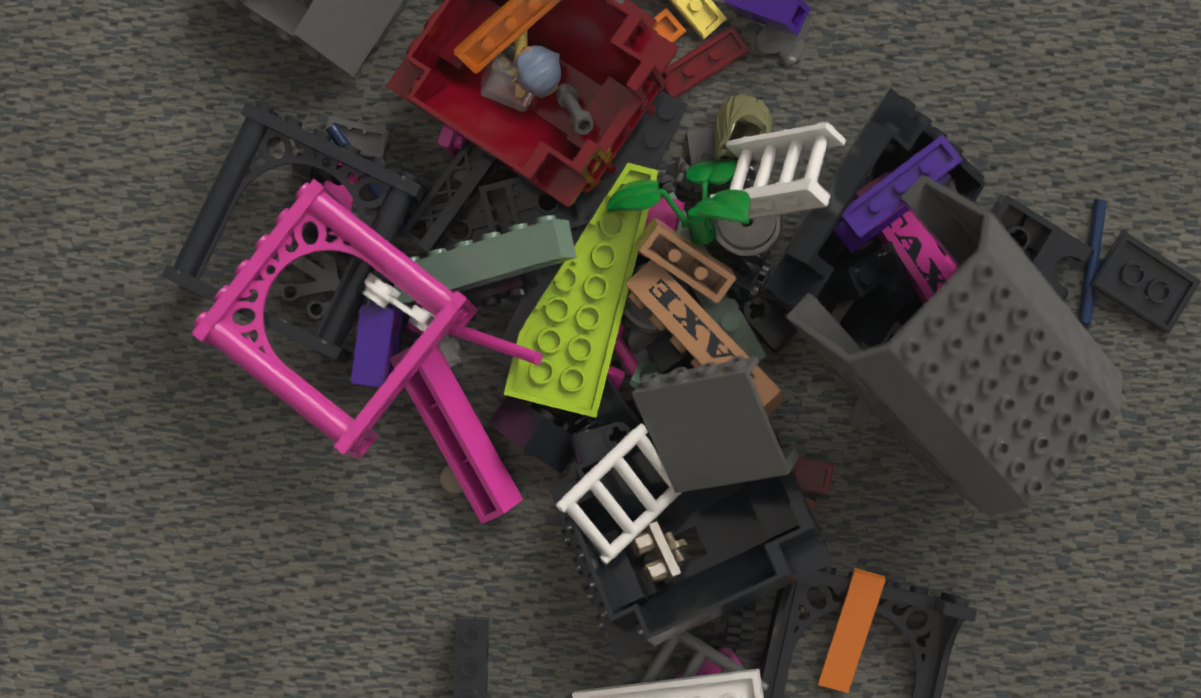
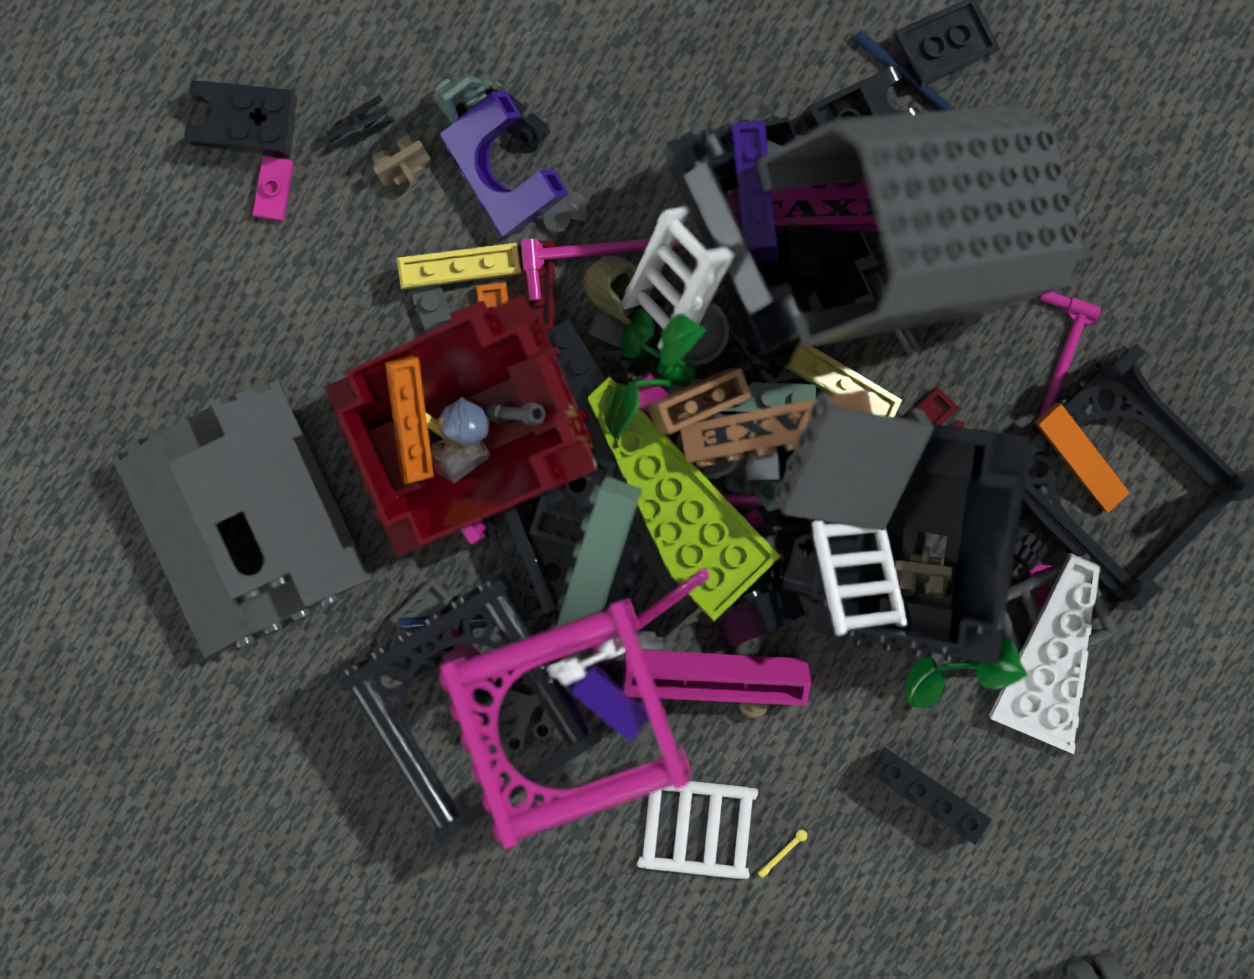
camera: 55 degrees left, 0 degrees up
(288, 528) = (708, 865): none -> white bar
(366, 592) = (801, 835): none -> light yellow hinge
(568, 617) = (927, 685): none -> green plant
(726, 41) = (534, 256): none -> dark pink bar
(784, 372) = (838, 379): none -> light yellow tile
(979, 553) = (1082, 314): none -> dark pink bar

